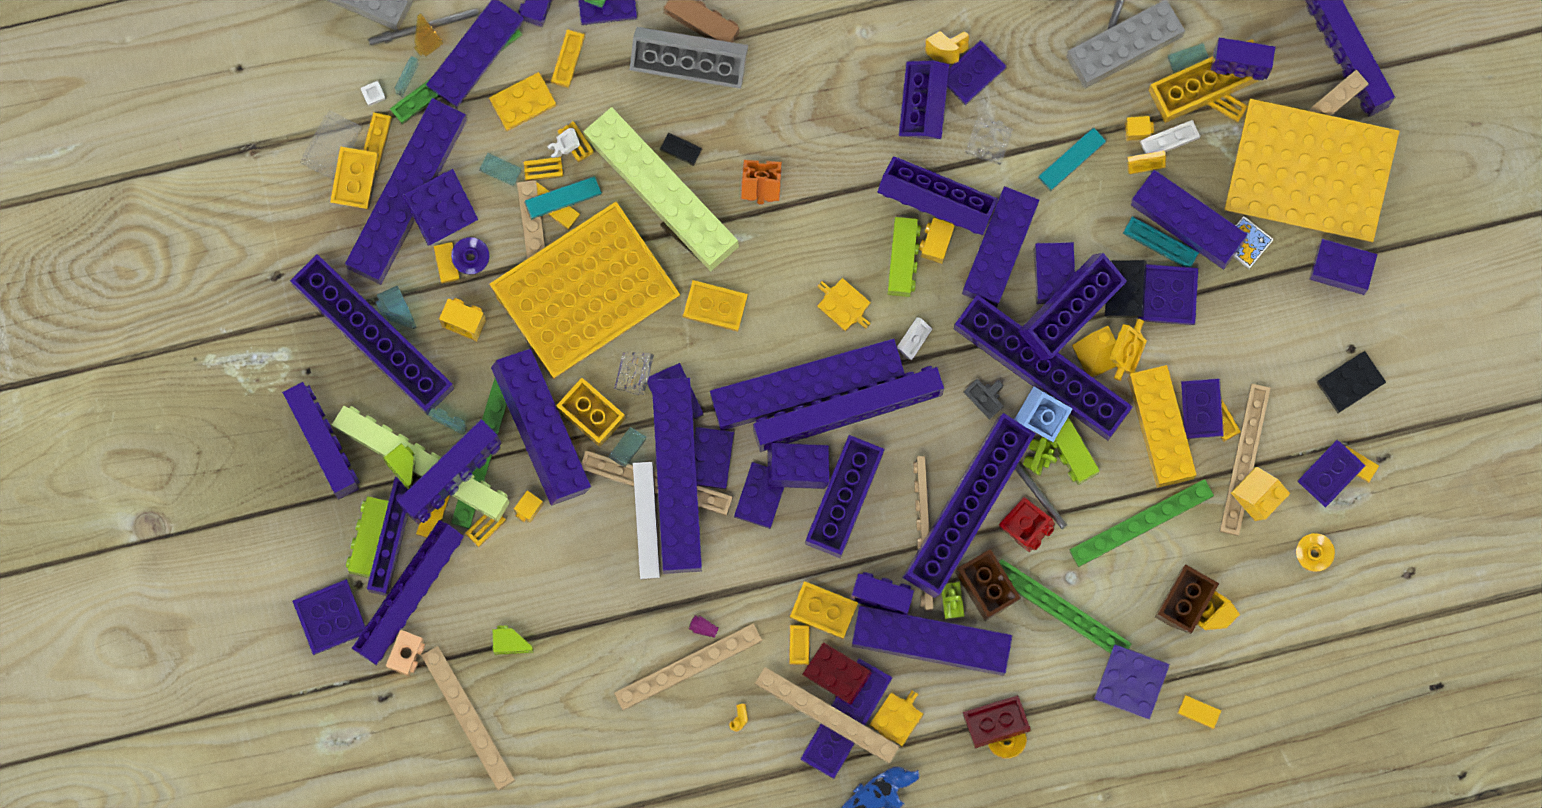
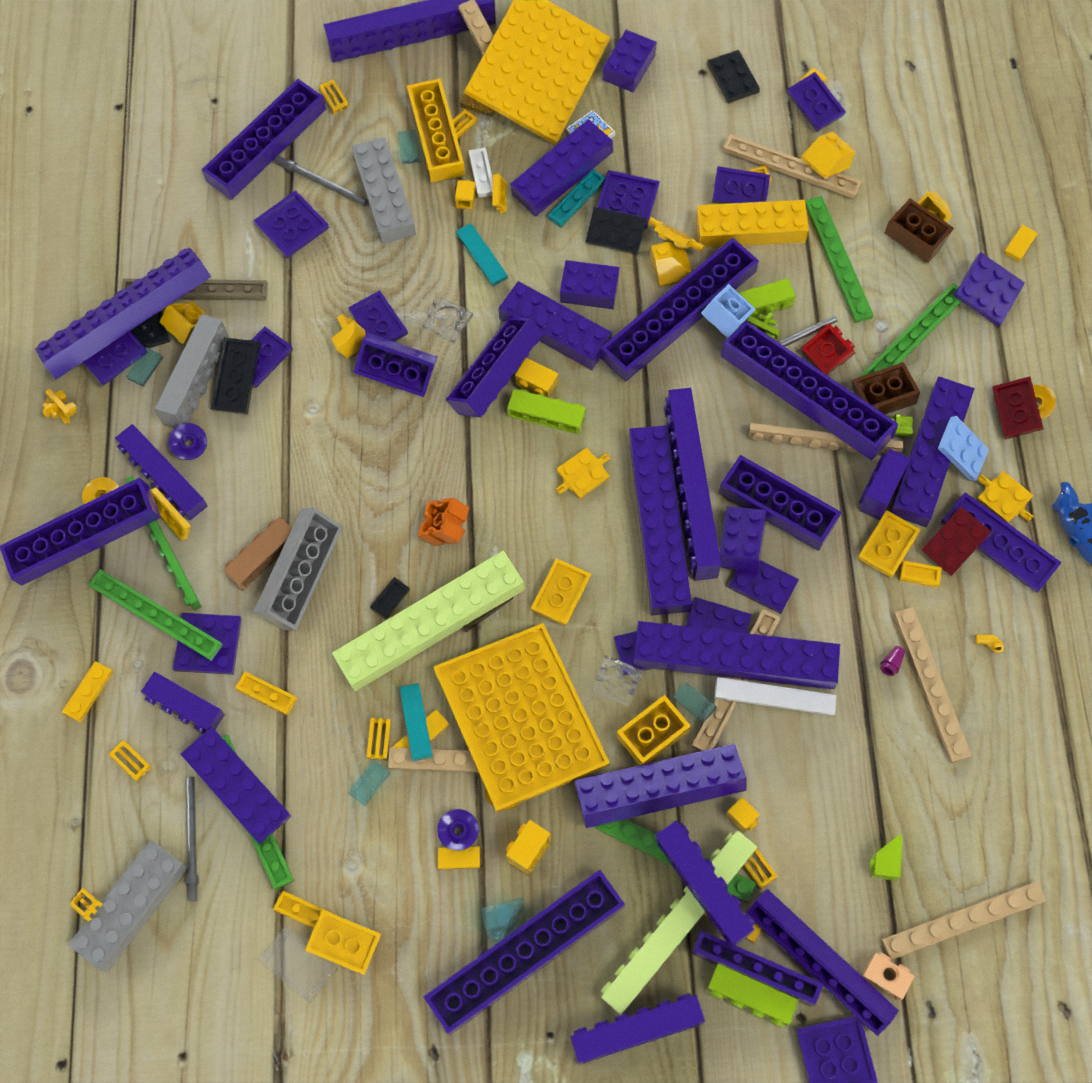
camera: 75 degrees left, 10 degrees down
(373, 93) = (252, 905): white plate -> none
(391, 216) = (372, 887): dark purple brick -> none
(402, 464) = (684, 938): lime slope -> none
(406, 76) = (242, 865): clear light blue tile -> none
(425, 37) = (204, 836): clear yellow slope -> none
(440, 207) = (398, 851): dark purple plate -> none
(441, 417) = (640, 877): clear light blue plate -> none
(522, 101) = (300, 747): yellow plate -> none
(566, 143) = (358, 706): white plate -> none
(580, 135) = (356, 693): yellow tile -> none
(827, 715) = (997, 557): tan plate -> none
(914, 338) = (628, 414): white plate -> none
(935, 668) = (963, 448): none -> light blue plate
(985, 397) = (698, 364): dark grey hinge -> none
(1072, 306) = (631, 264): dark purple brick -> none
(1243, 58) = (426, 87): dark purple brick -> none
(1320, 544) = (885, 126): yellow dish -> none

